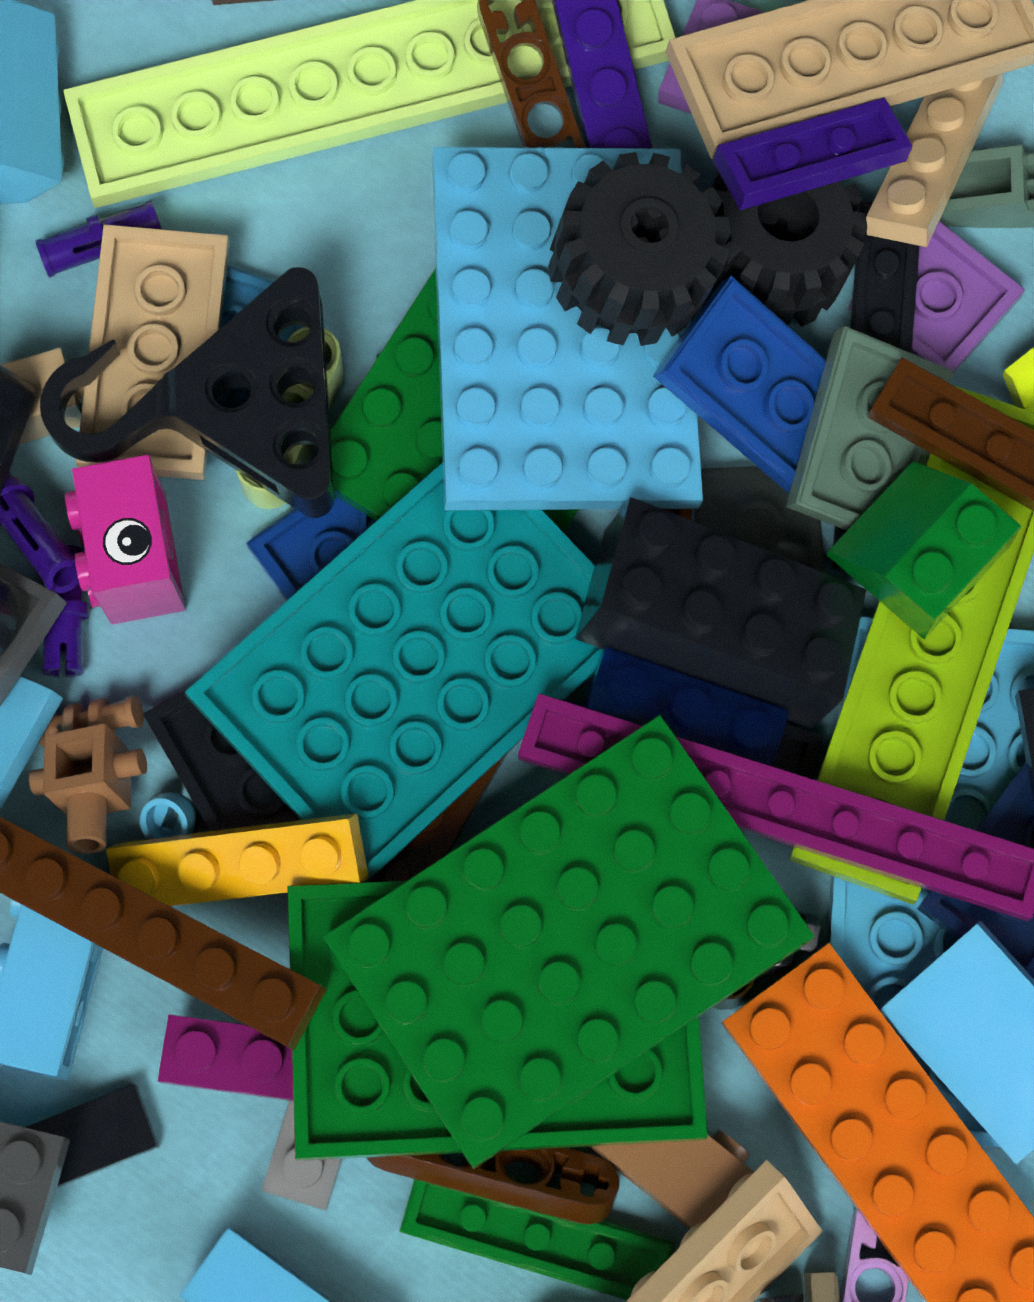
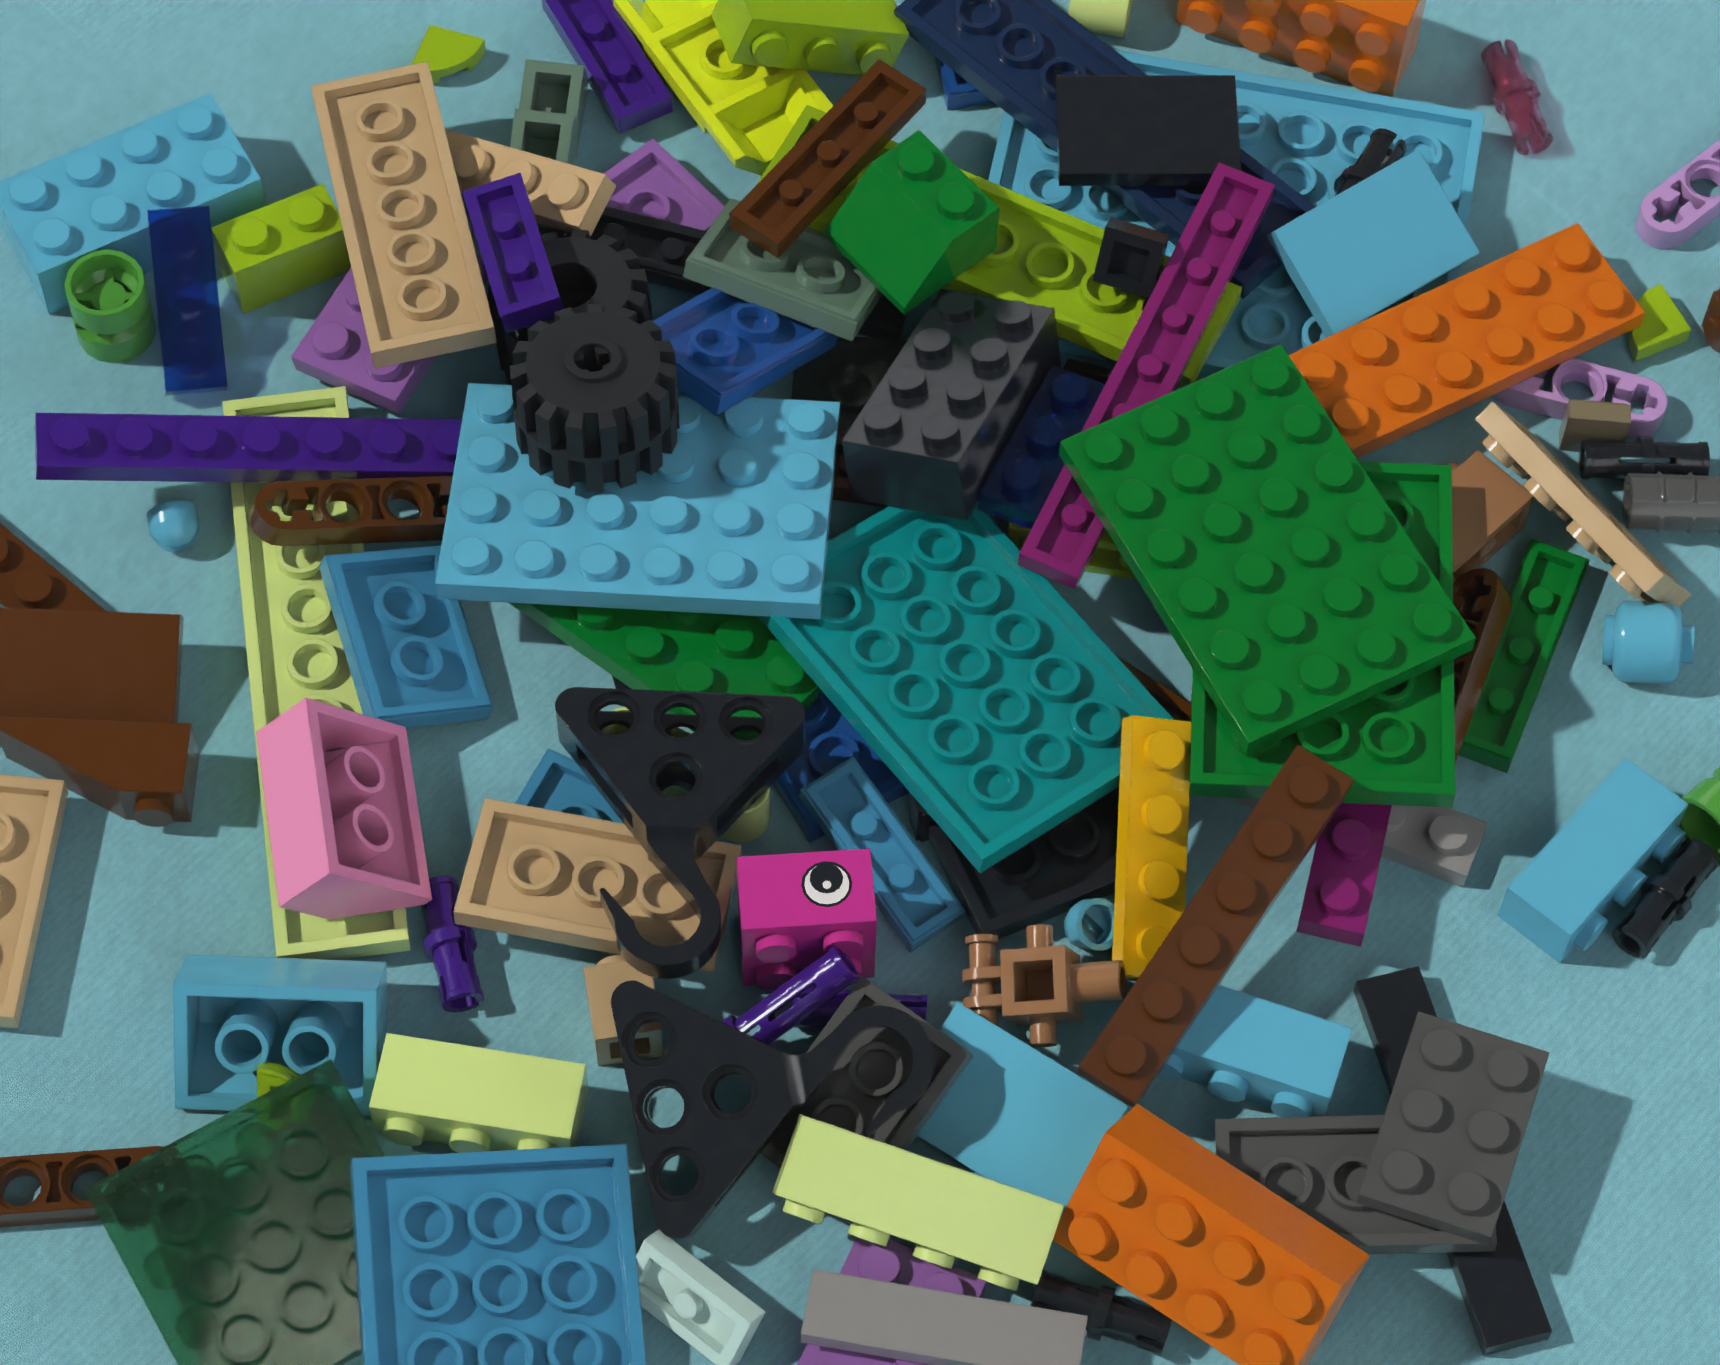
camera: 85 degrees left, 15 degrees down
(195, 115) = (341, 812): none -> bright pink slope
(227, 609) = (904, 880): none -> dark azure tile
(380, 146) = (401, 643): none -> dark azure tile
(919, 773) = (1130, 257): none -> black tile

